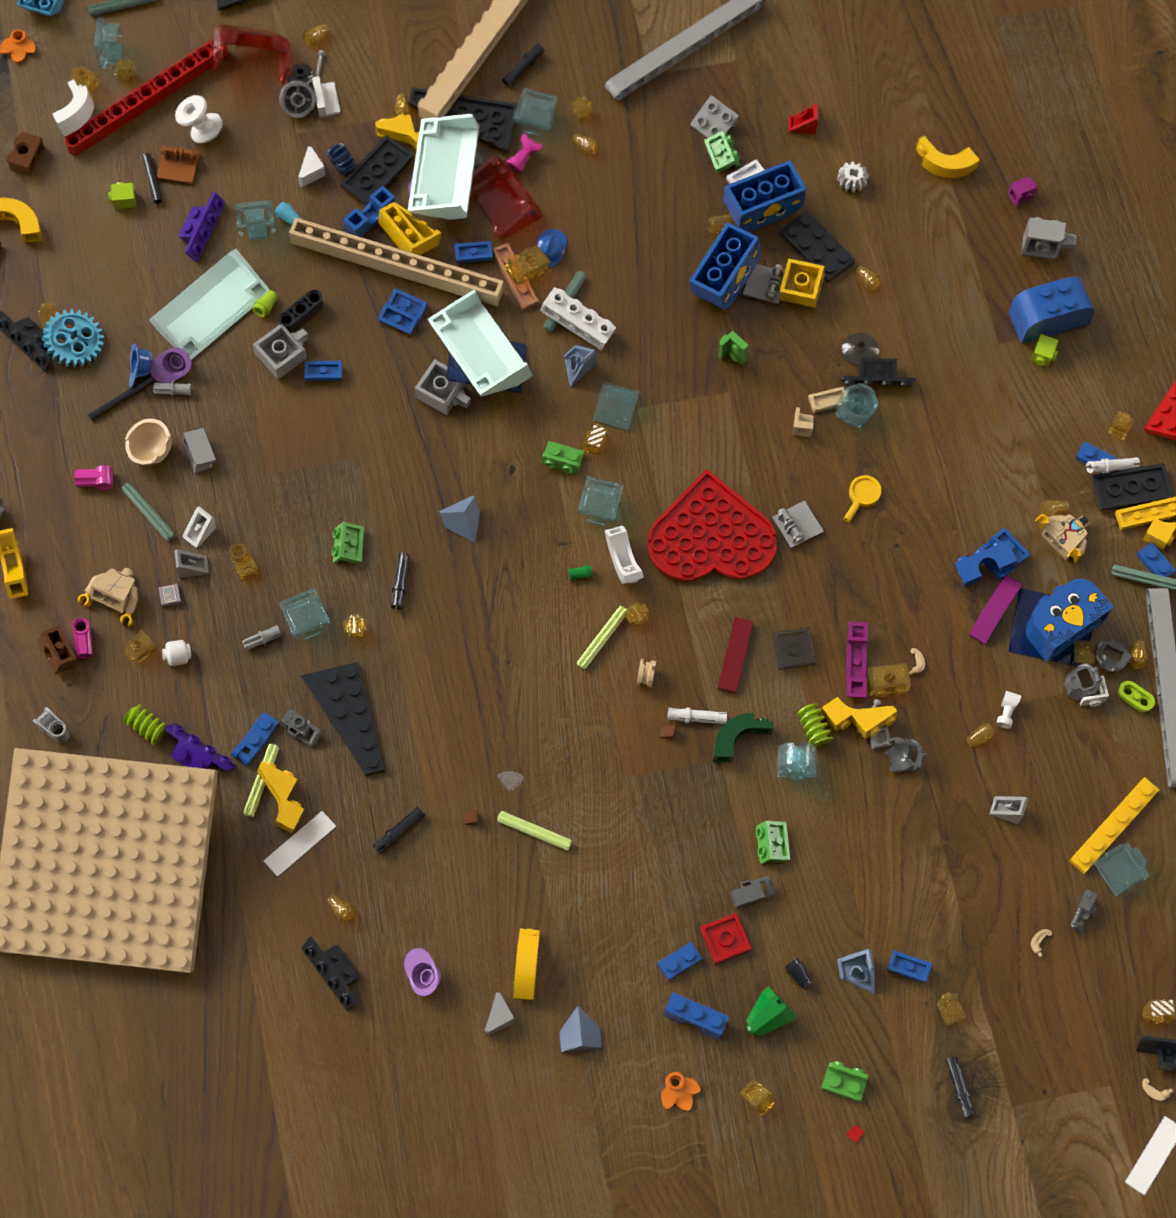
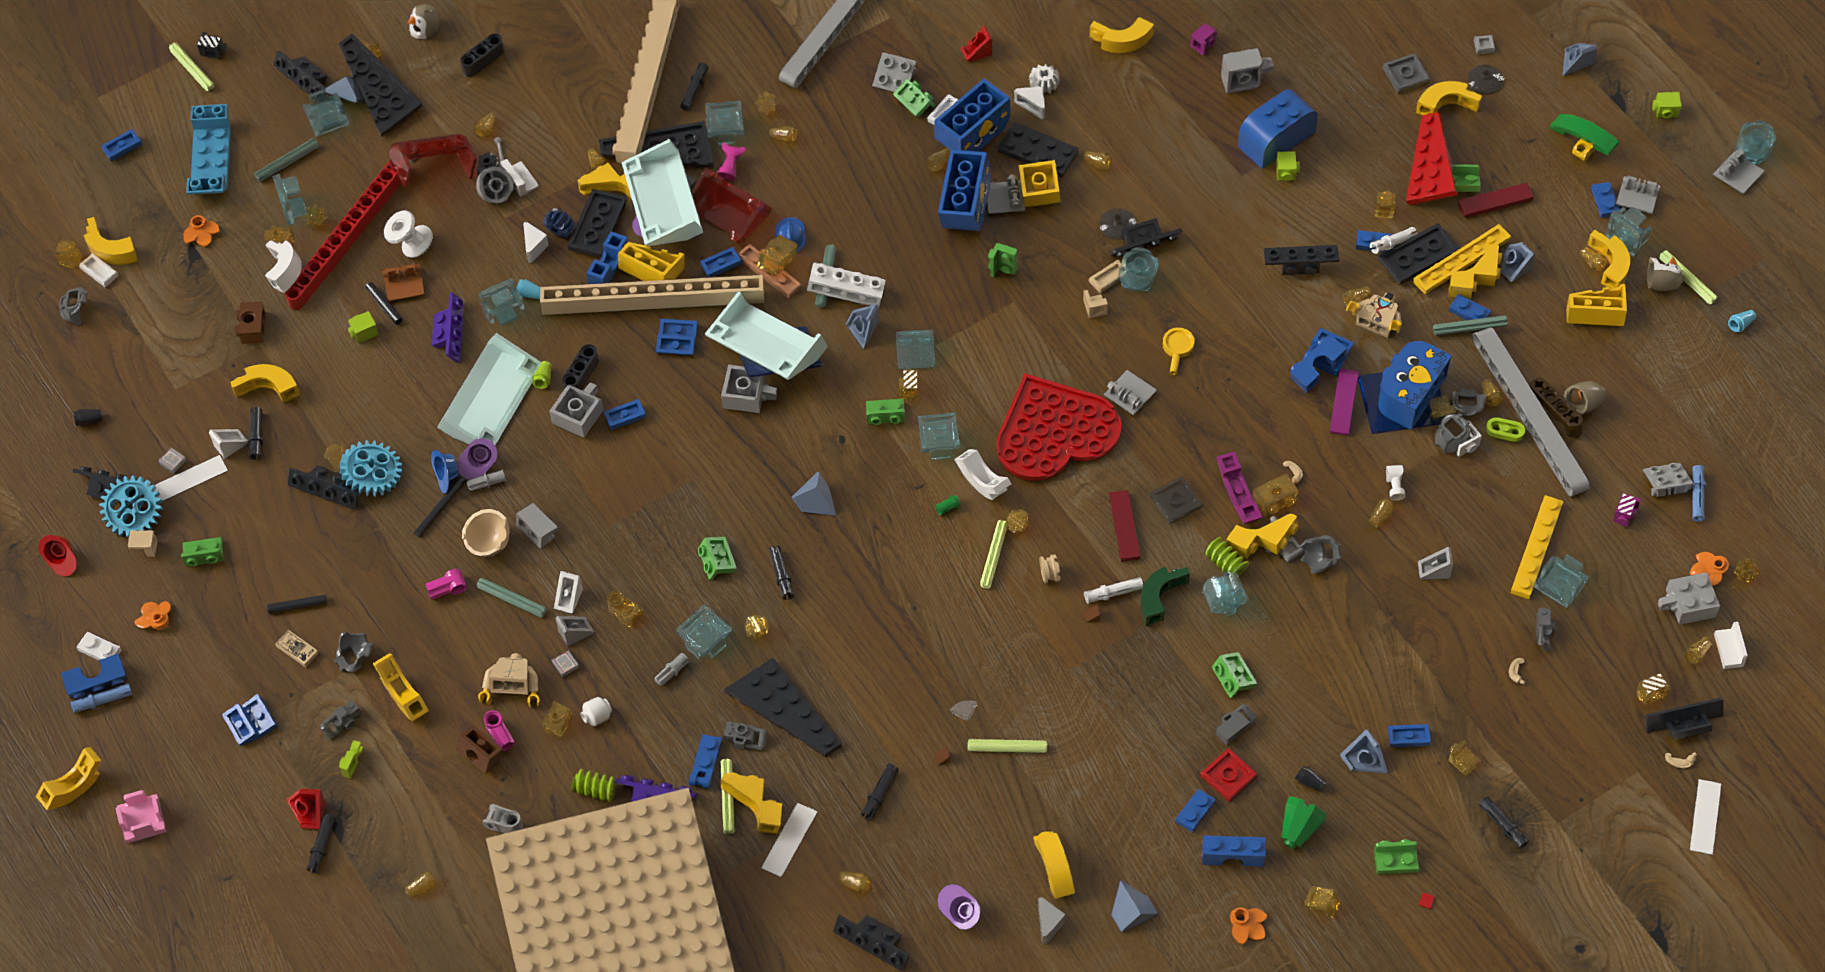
camera: 15 degrees left, 10 degrees down
(831, 193) = (1031, 100): none -> white slope
(1016, 451) = (1301, 259): none -> black bracket

